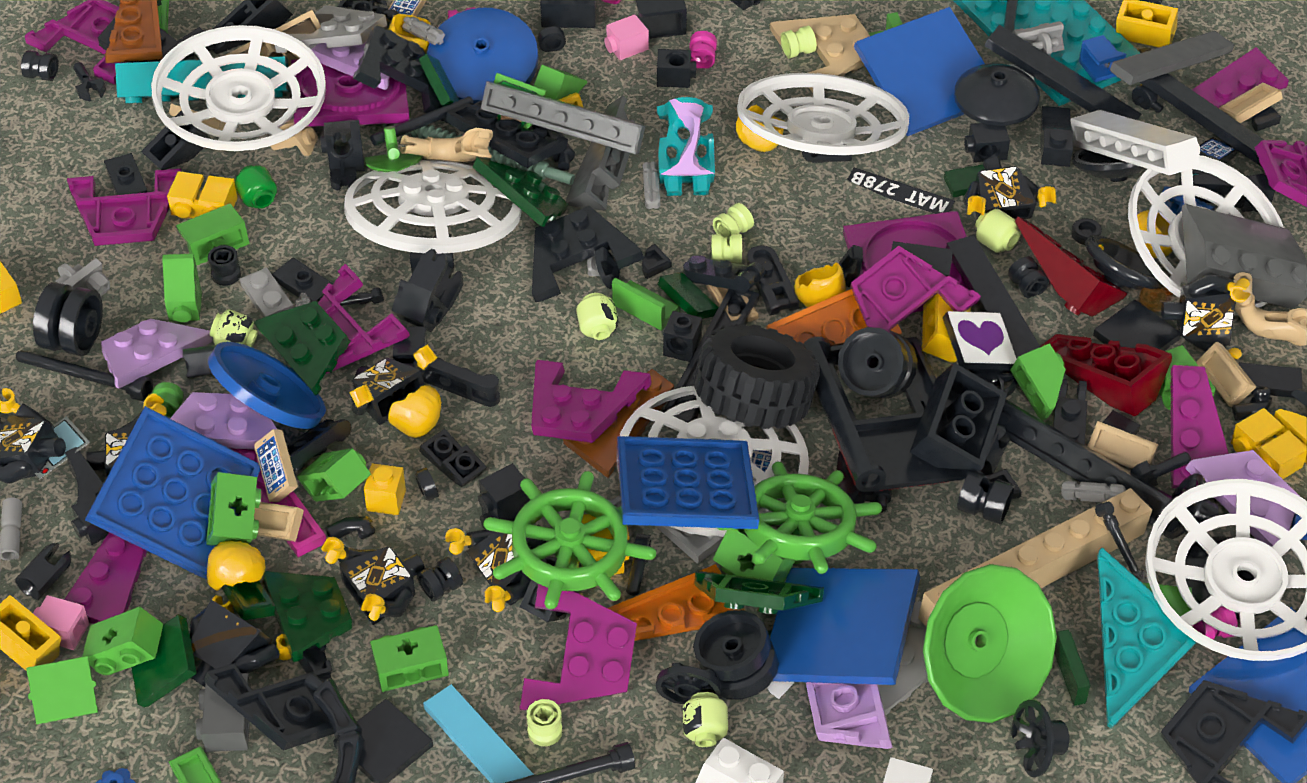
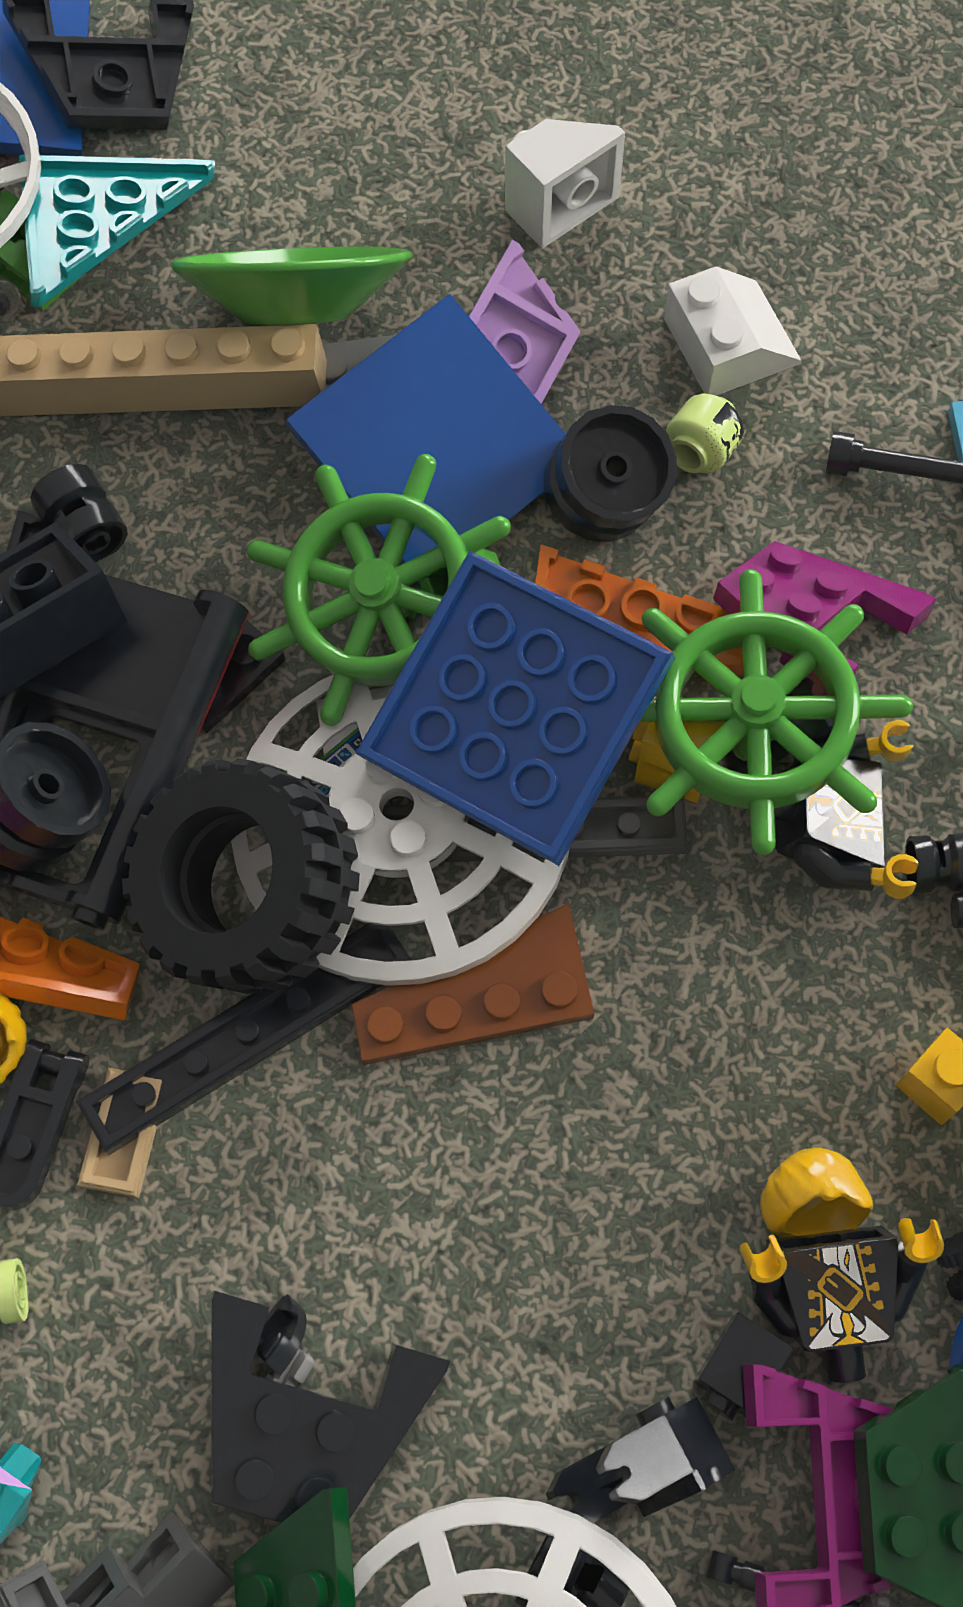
camera: 145 degrees left, 20 degrees up
(426, 484) = (867, 1053): black tile -> none
(456, 462) = (791, 1089): black slope -> none
(463, 382) = (694, 1237): black plate -> none
(502, 494) = (779, 908): black brick -> none
(543, 731) = (913, 563): yellowish green wheel -> none
(575, 411) = (552, 1037): magenta wing -> none
(597, 316) = (377, 1225): yellowish green head -> none
(642, 303) = (271, 1215): bright green panel -> none
(651, 185) = (49, 1510): light grey axle -> none
(655, 261) = (182, 1311): black tile -> none
(682, 336) = (272, 1081): black brick -> none
(685, 682) = (703, 472): black wheel -> none
(687, 295) = (192, 1178): dark green tile -> none
(723, 273) = (105, 1178): black plate -> none
(727, 248) = (49, 1239): yellowish green wheel -> none
(760, 593) = (550, 516): dark green wing -> none
(1043, 736) = (312, 175): black wheel -> none
(1072, 667) = (196, 235): dark green tile -> none

